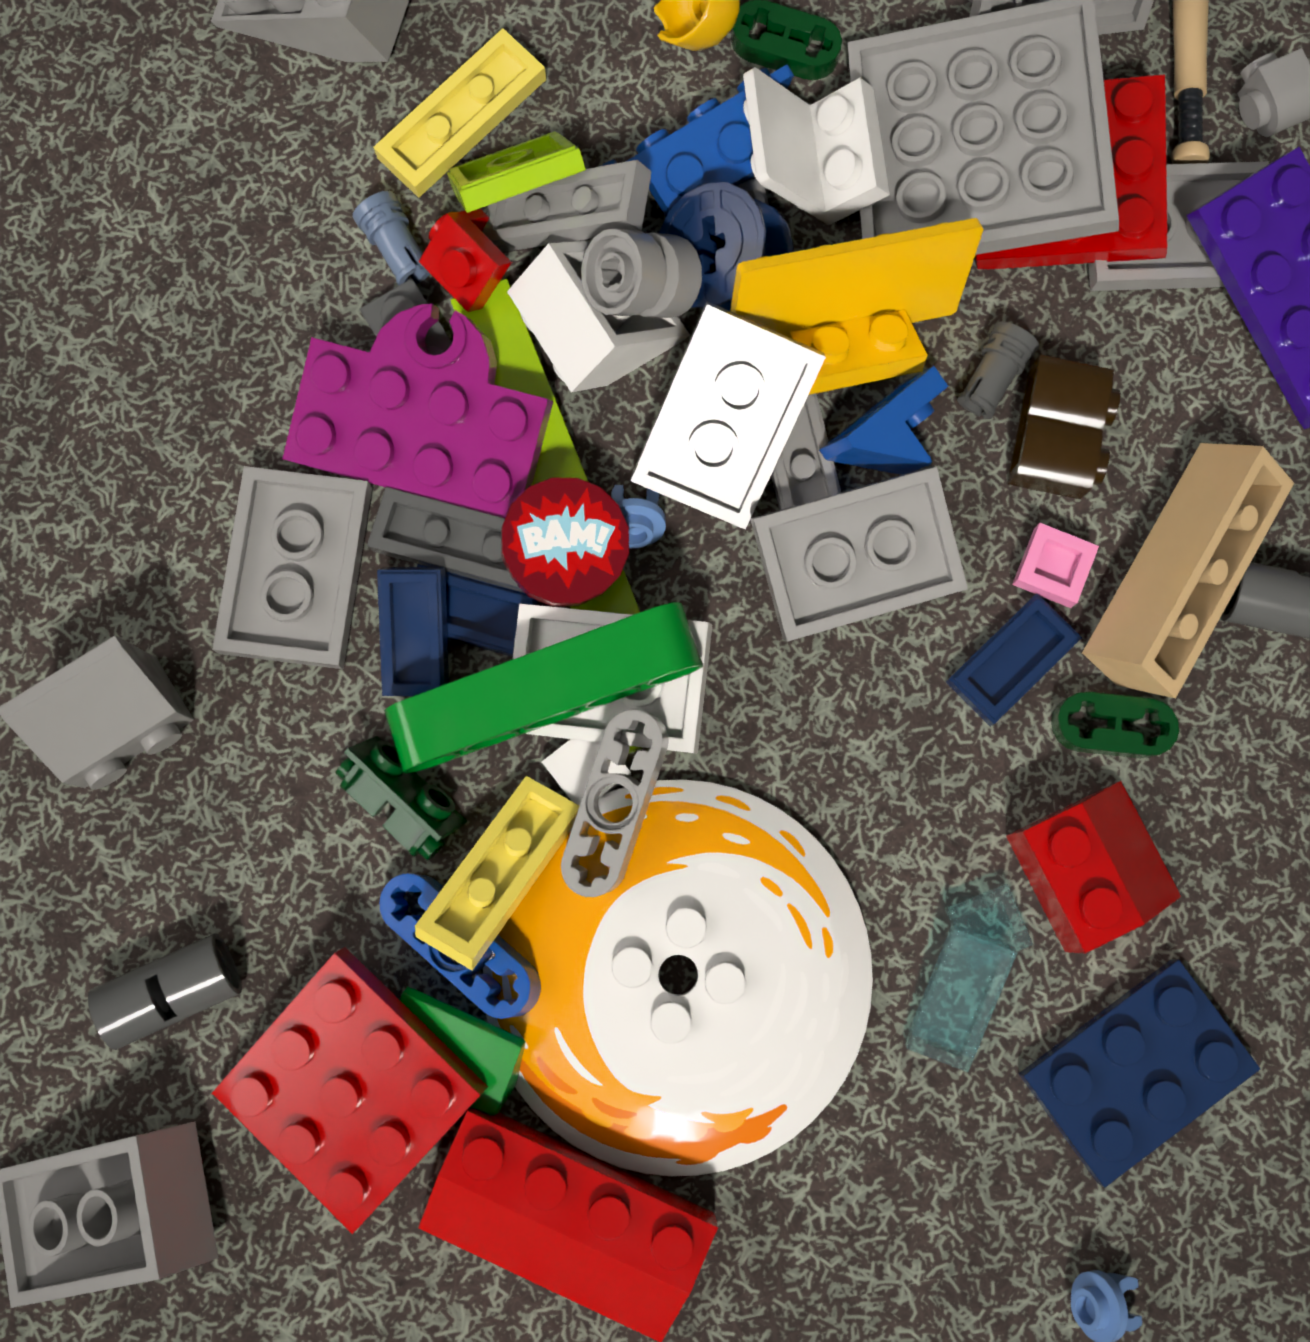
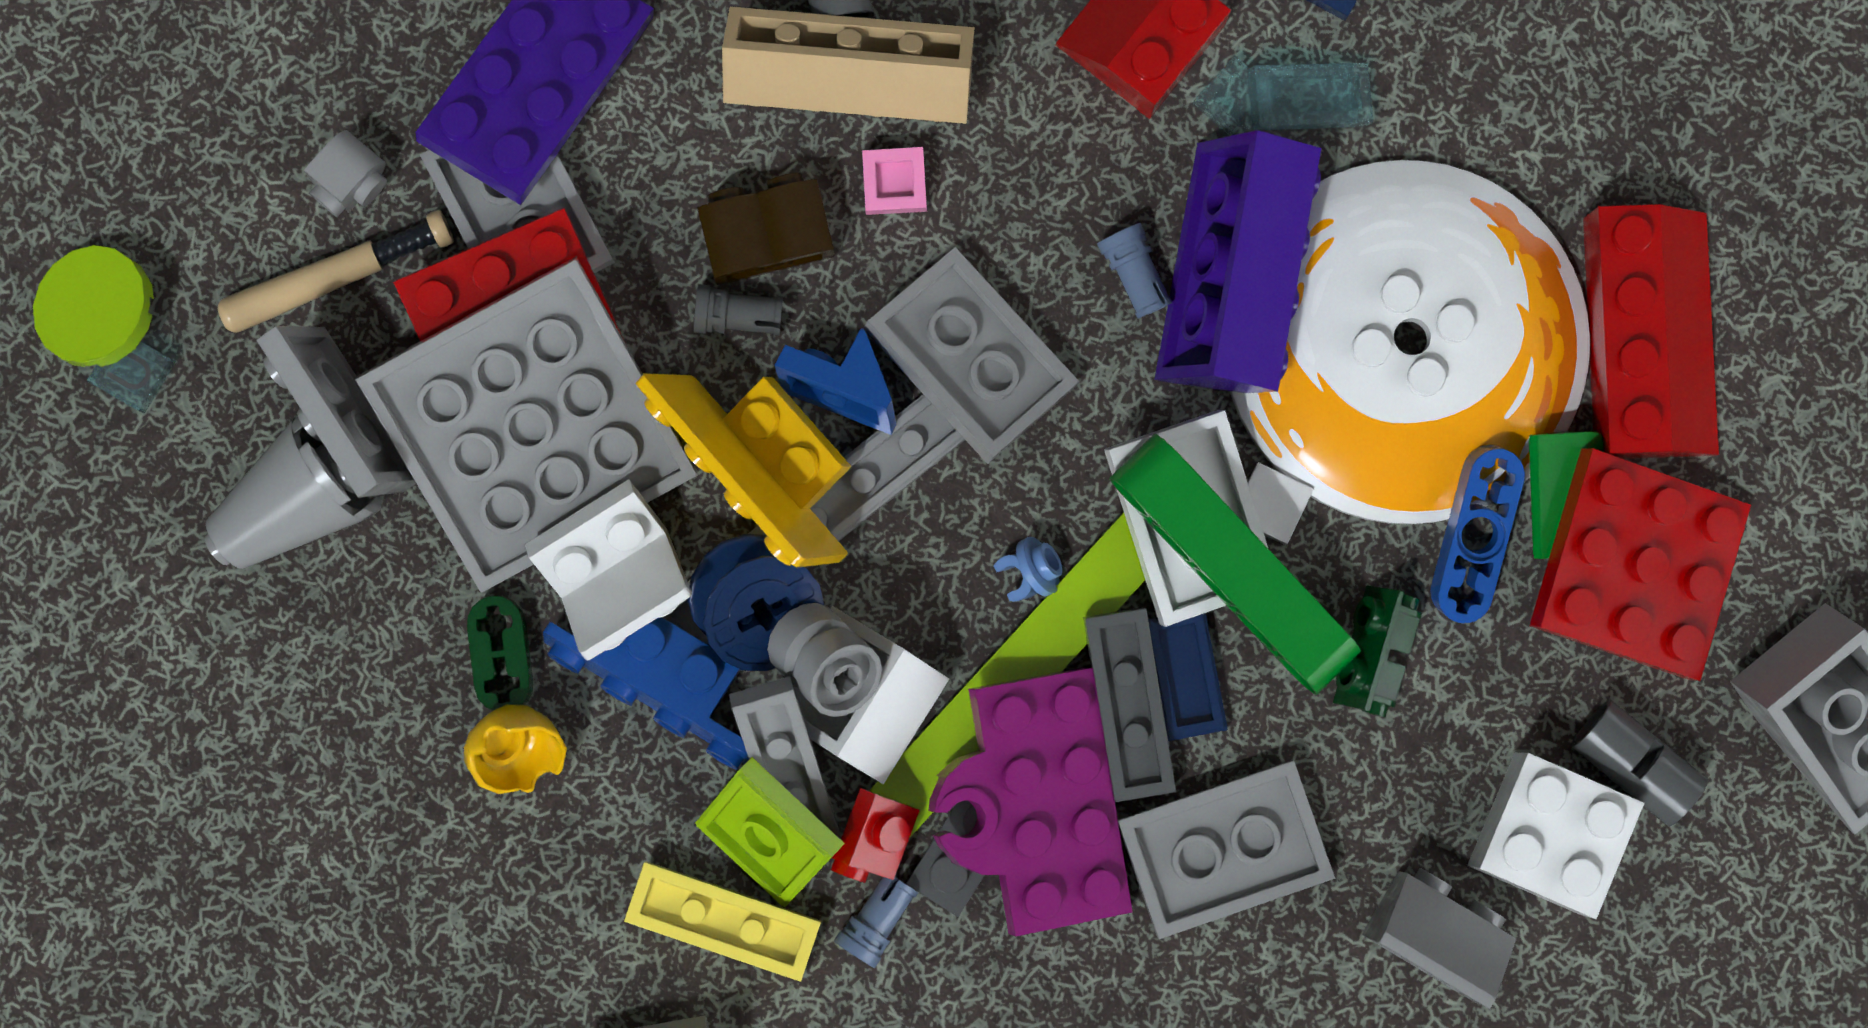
camera: 115 degrees left, 5 degrees up
(139, 874) = (1556, 834): none -> white brick
(412, 629) = (1231, 711): dark blue tile -> none
(497, 873) = (1403, 527): light yellow plate -> none
(564, 541) = (1095, 611): tile -> none
(613, 854) = (1345, 468): light grey beam -> none
(727, 415) = (910, 525): plate -> none
(829, 845) = (1239, 263): none -> dark purple slope
(885, 747) = (1135, 269): none -> sand blue pin
(1013, 660) = (994, 180): dark blue tile -> none
(1113, 739) = (1024, 63): dark green beam -> none

